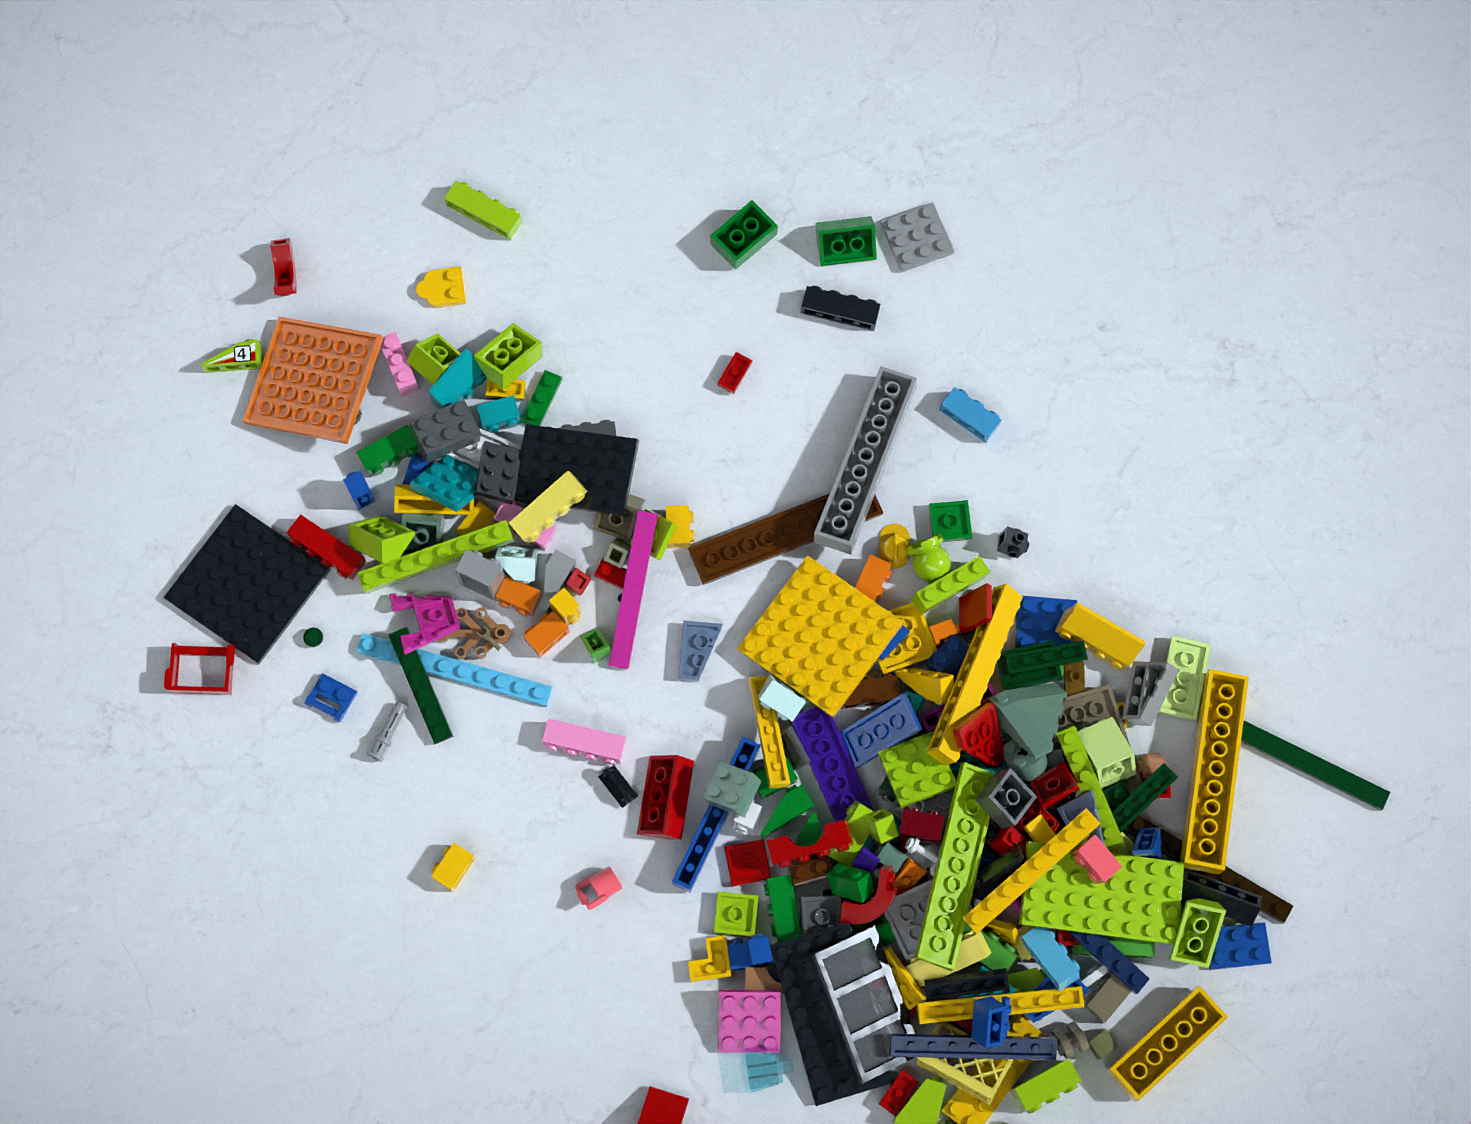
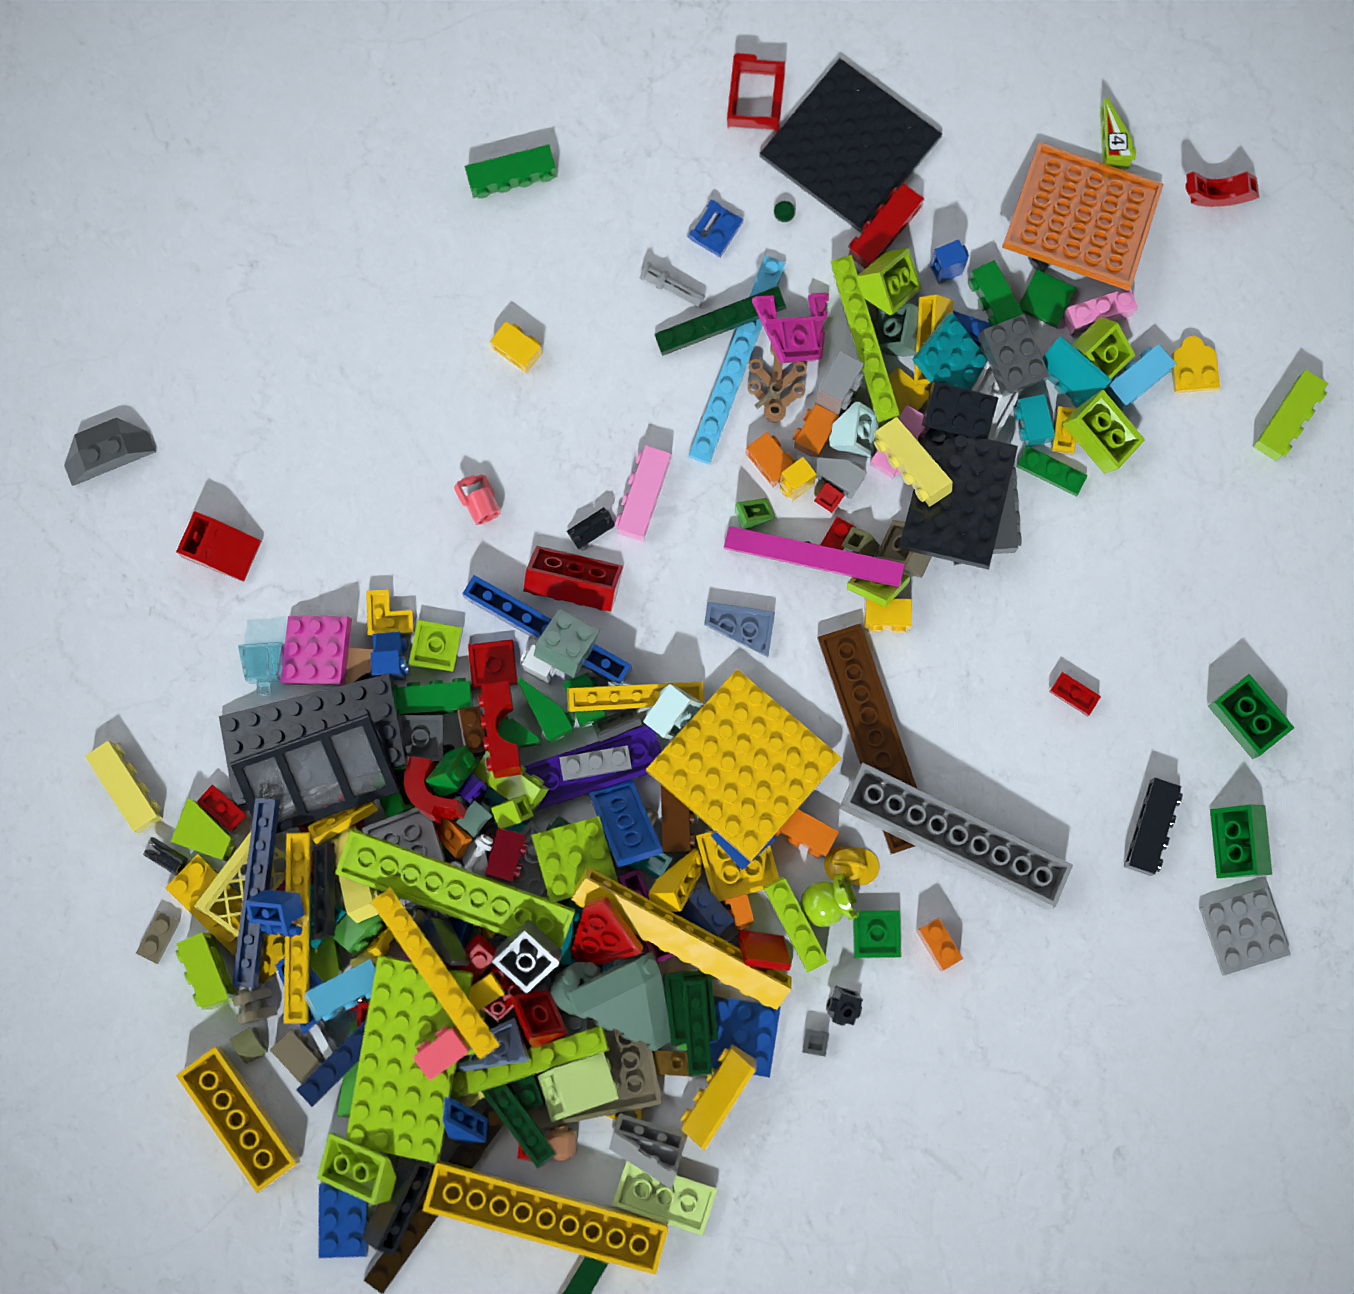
camera: 100 degrees right, 5 degrees up
(282, 887) = (511, 171): none -> green brick
(386, 409) = (1046, 298): none -> green tile
(455, 329) = (1139, 376): none -> medium azure brick
(829, 762) = (595, 763): none -> light grey plate
(954, 470) = (939, 944): none -> orange brick
(970, 414) = (1010, 972): dark azure brick -> none
(1044, 565) = (815, 1042): none -> dark grey plate

